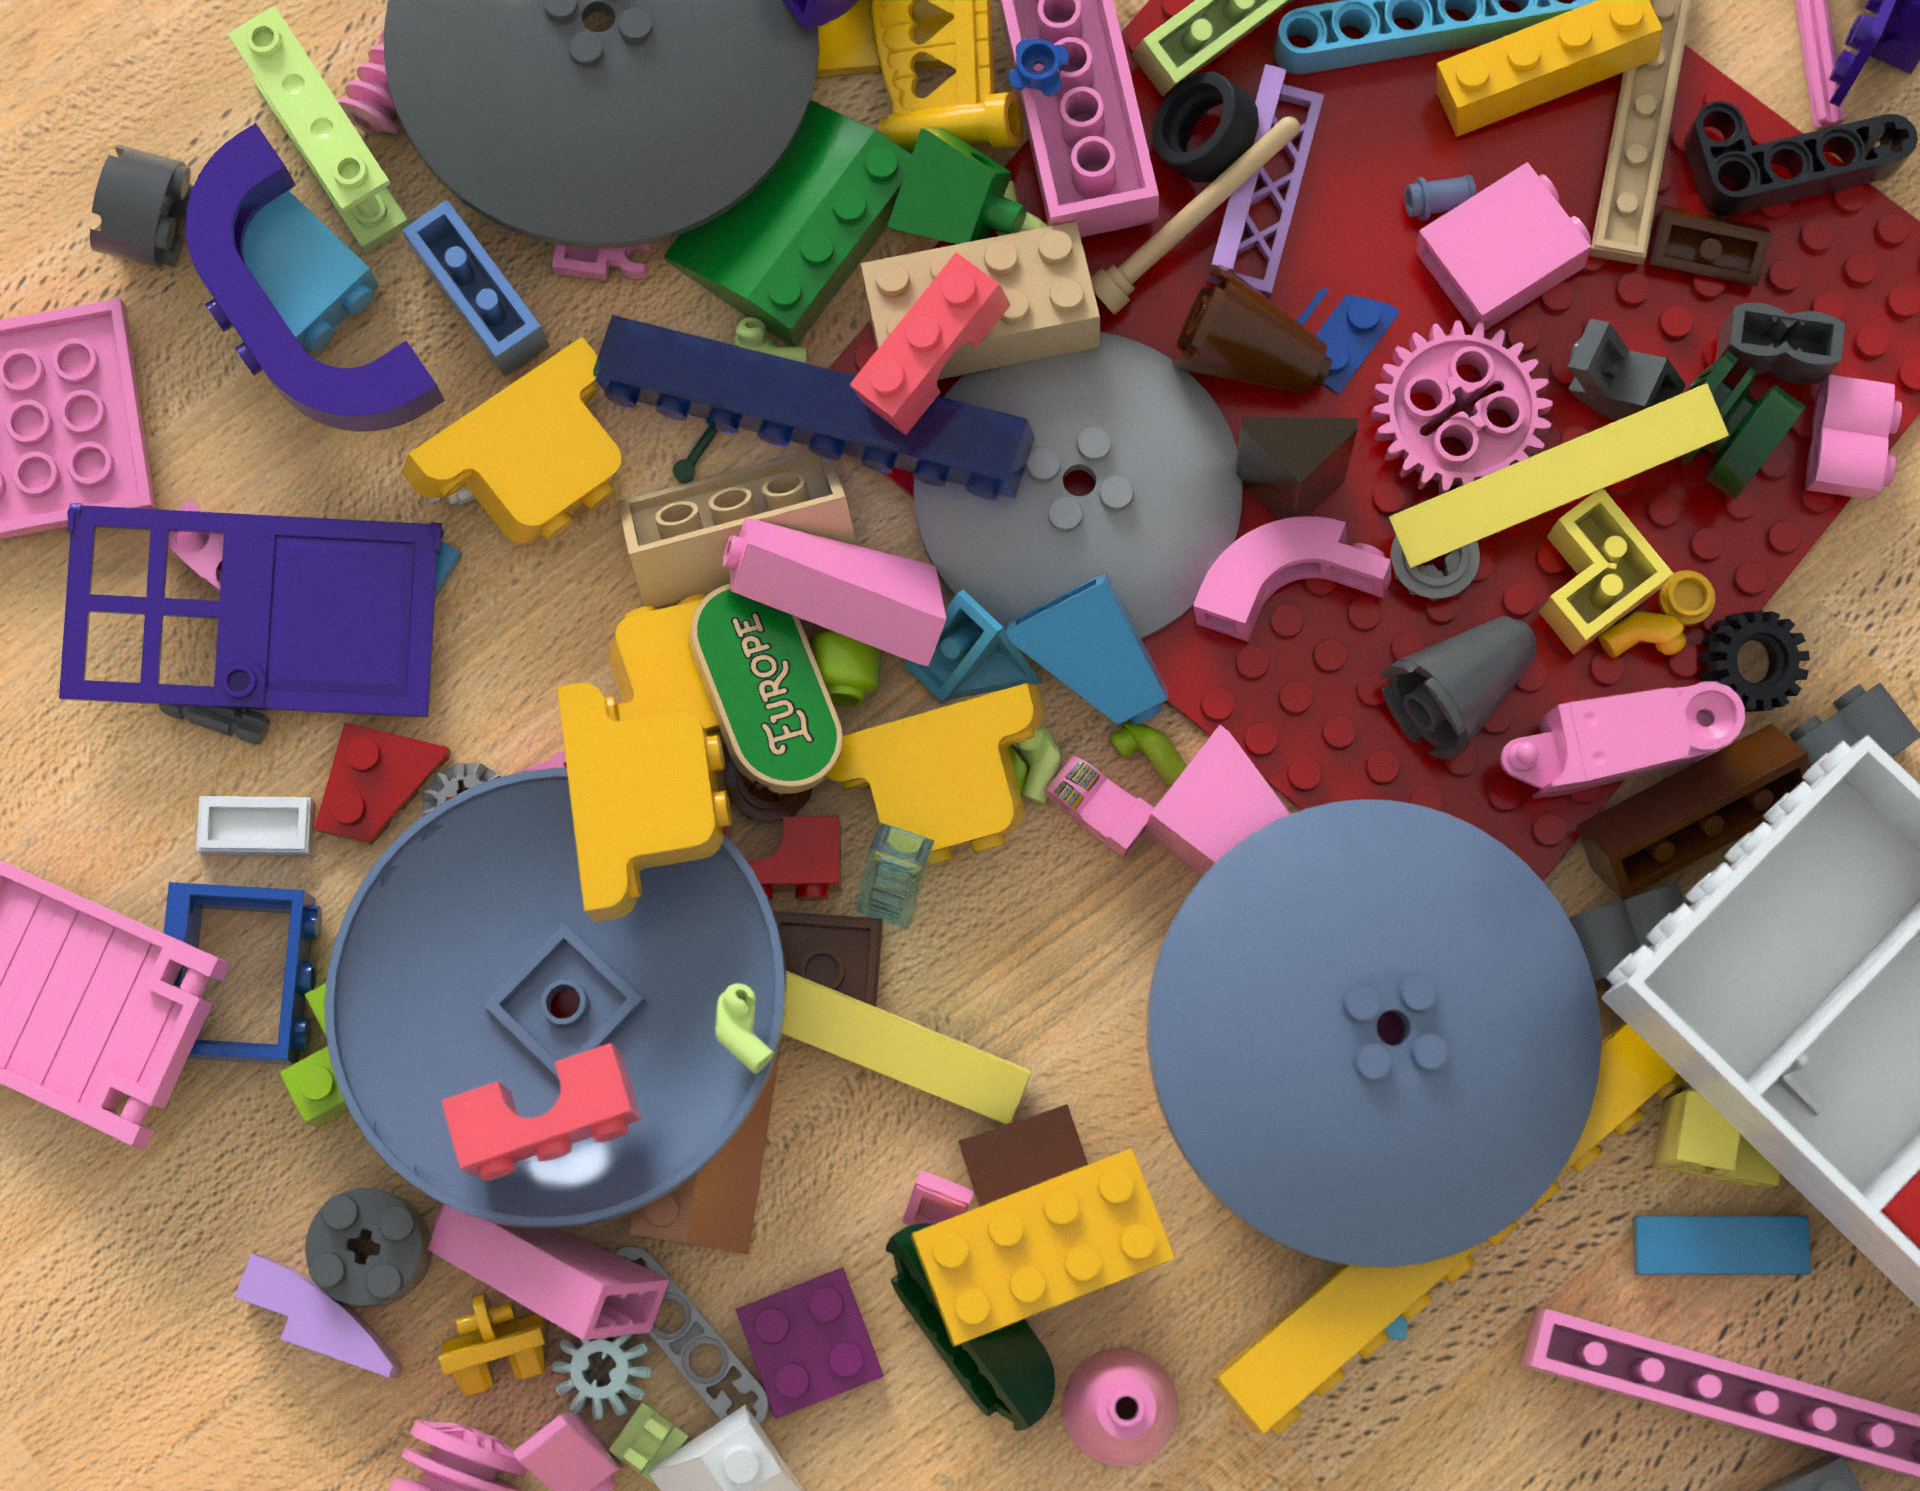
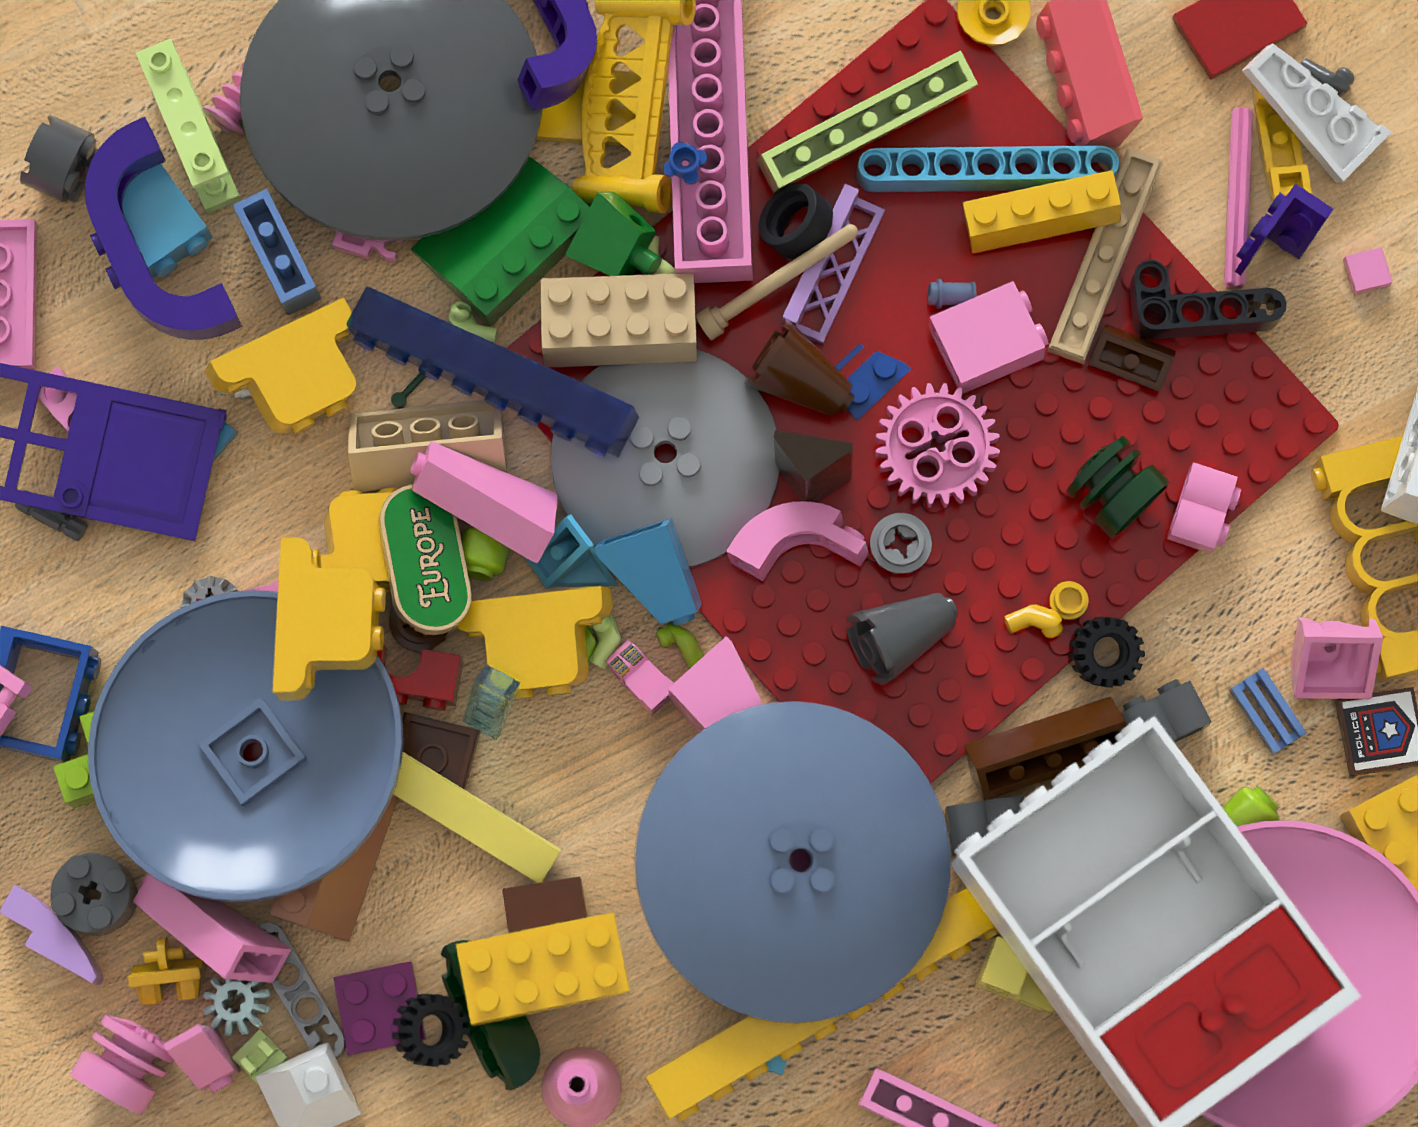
camera: 10 degrees right, 0 degrees up
(255, 825) = (66, 596): white tile -> none
(373, 780) = (151, 578): red wing -> none
(592, 1102) = (256, 821): coral arch -> none
(735, 1027) = (361, 785): yellowish green arm -> none
(904, 370) = (591, 325): coral arch -> none
(920, 1358) = (409, 1027): none -> black tyre
(936, 1200) = (480, 925): bright pink tile -> none
(1559, 475) = (989, 503): light yellow tile -> none
(1612, 566) = (1019, 573): light yellow brick -> none
(1616, 378) = (1050, 443): dark grey brick -> none
(1624, 737) = (1000, 690): bright pink piece -> none
(1721, 1245) = (1010, 1047): dark azure tile -> none
(1790, 347) = (1173, 439): dark grey brick -> none

